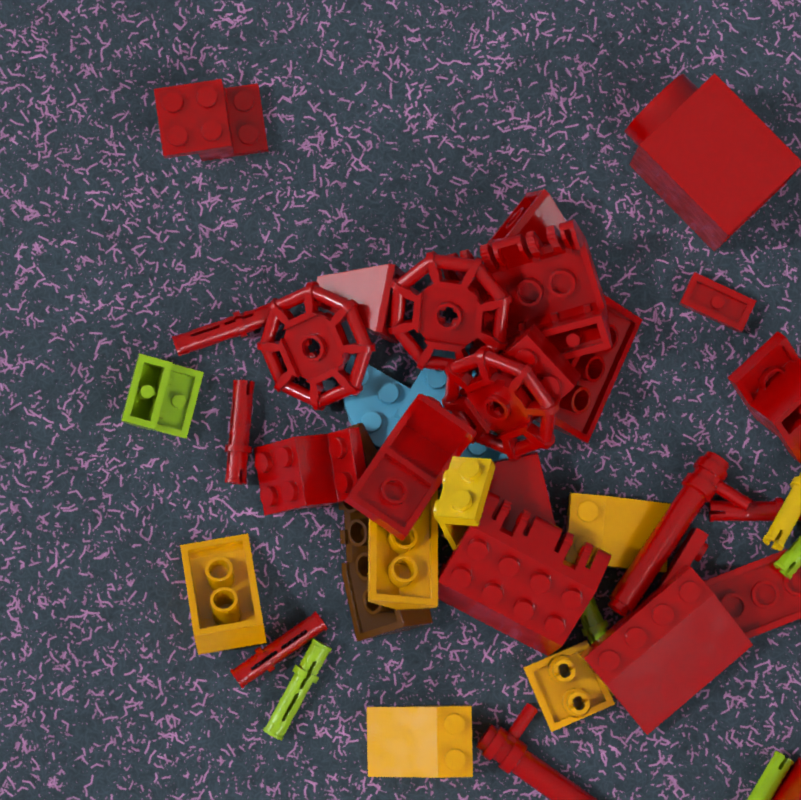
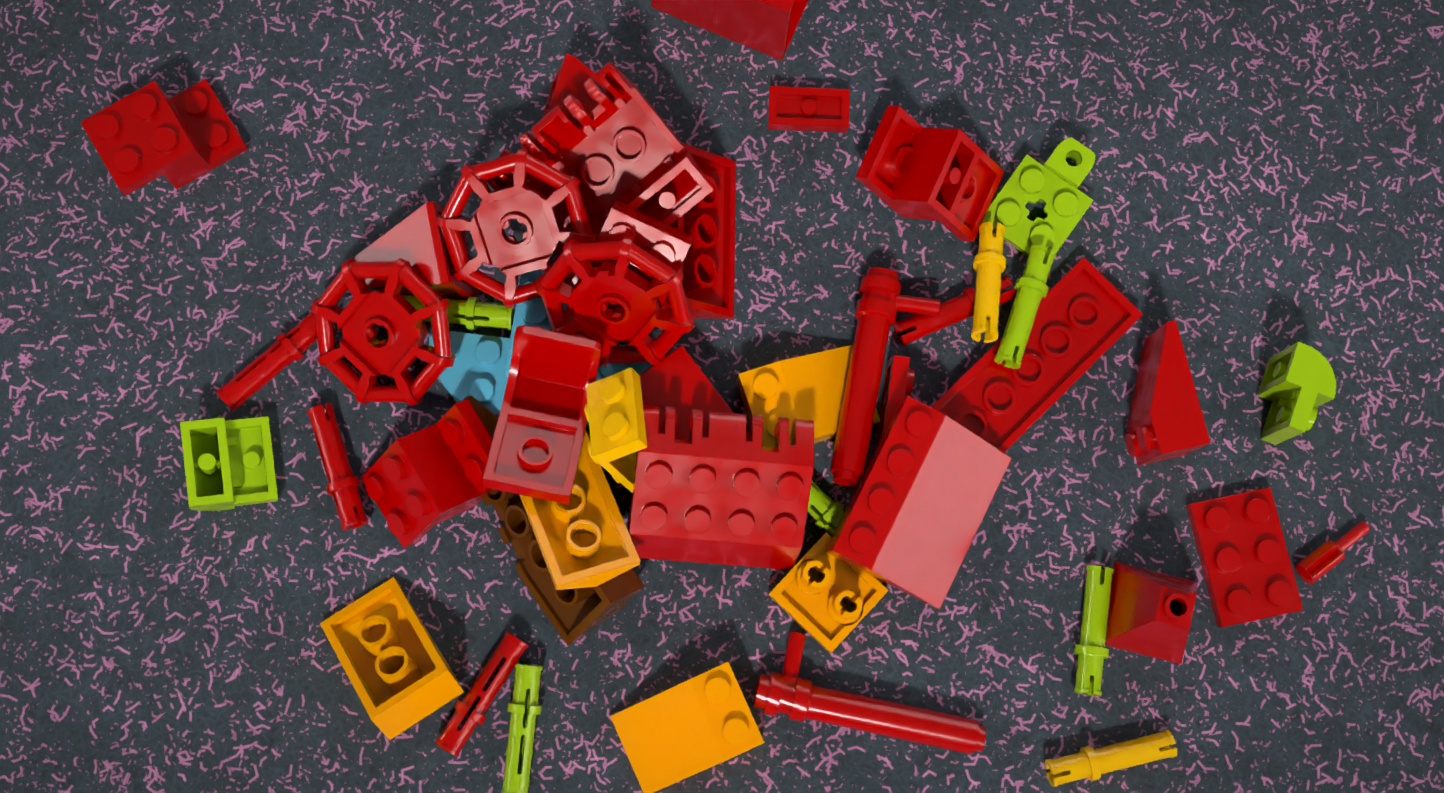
camera: 30 degrees left, 5 degrees down
(388, 355) = (473, 312): none -> lime pin

